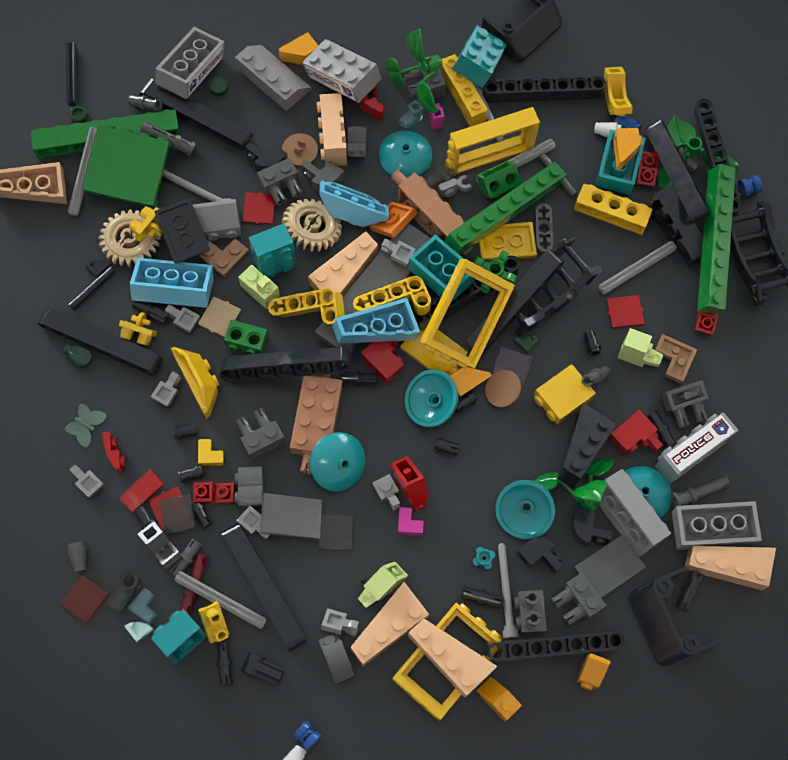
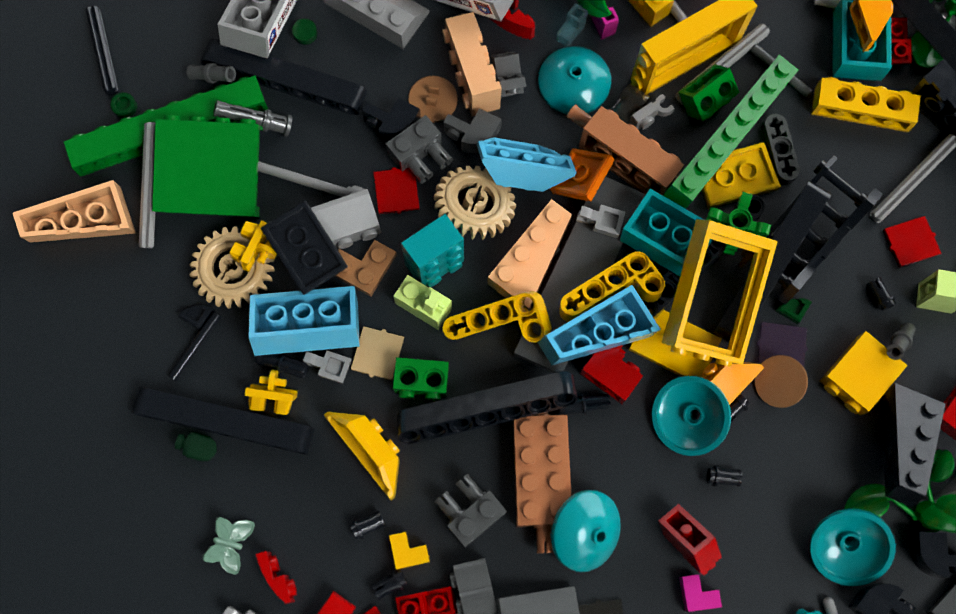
camera: 10 degrees left, 5 degrees up
(166, 392) = (329, 476): light grey plate -> none
(387, 490) = (657, 553): light grey plate -> none

